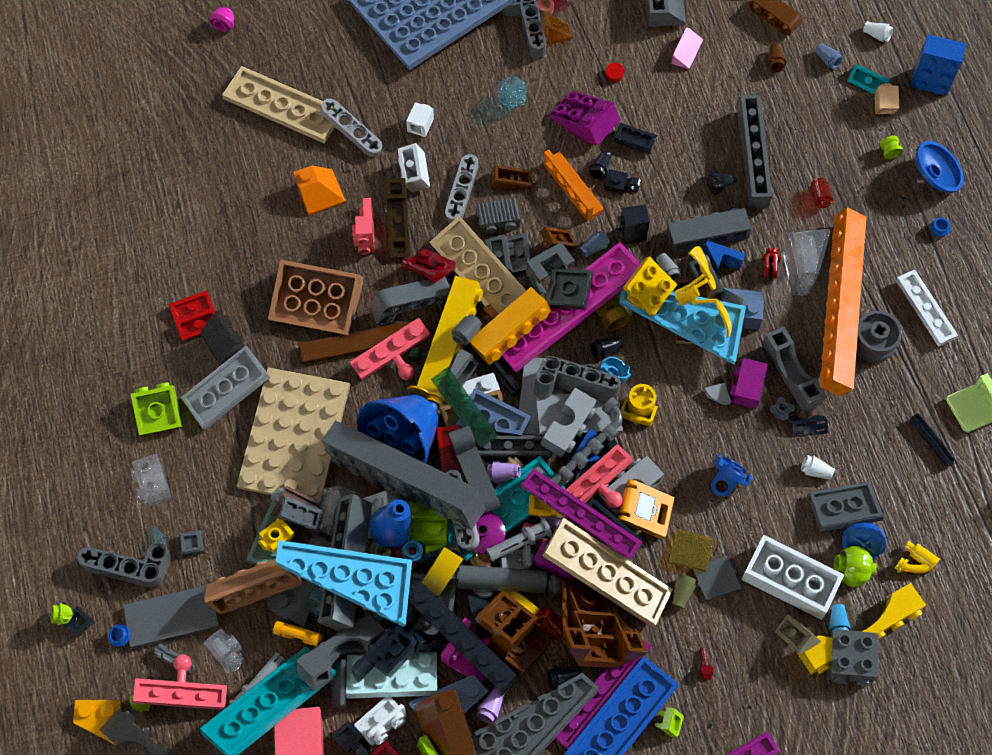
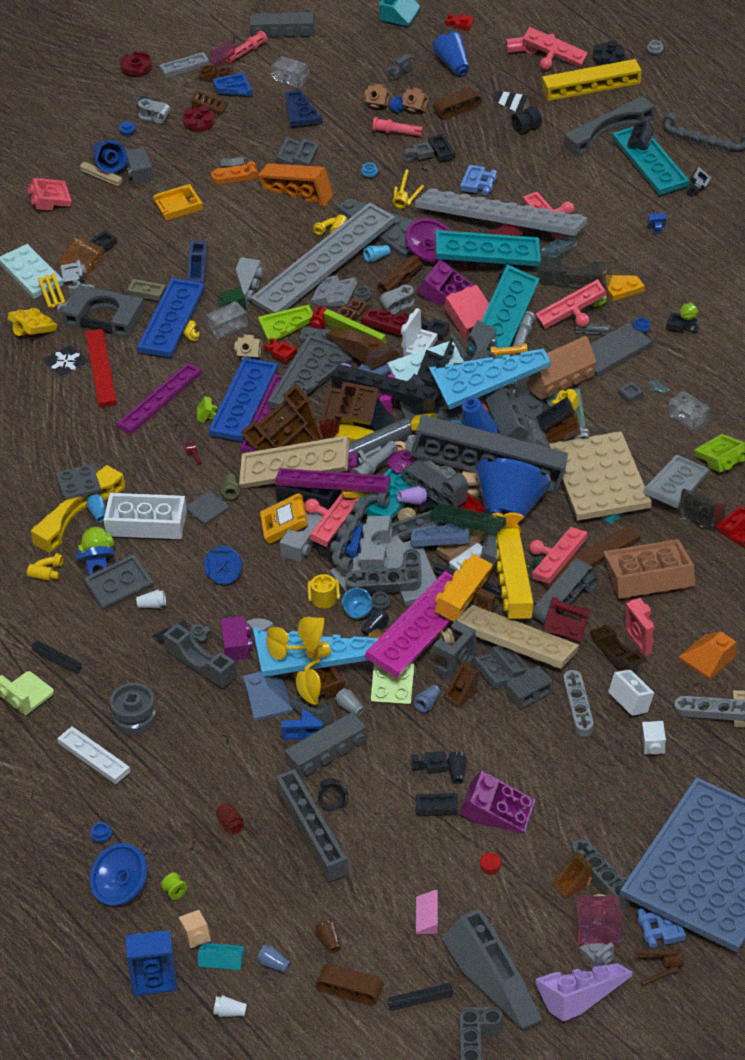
camera: 160 degrees right, 20 degrees down
(123, 563) = (668, 358): dark grey beam -> none
(225, 650) = (555, 331): clear brick -> none
(466, 329) = (498, 564): dark grey brick -> none
(503, 183) = (540, 719): reddish brown slope -> none
(512, 92) = (579, 794): clear light blue brick -> none
(569, 288) = (426, 628): pearl dark grey tile -> none
(572, 185) = (475, 741): orange fence -> none
(633, 224) = (397, 714): black brick -> none
(649, 287) = (354, 642): yellow plate -> none
(691, 550) = (235, 515): clear yellow piece -> none
(771, 257) = (254, 739): red arm -> none
(796, 635) = (126, 481): dark tan slope -> none
(803, 258) = (224, 742): clear slope -> none
(843, 302) = (174, 719): brick -> none

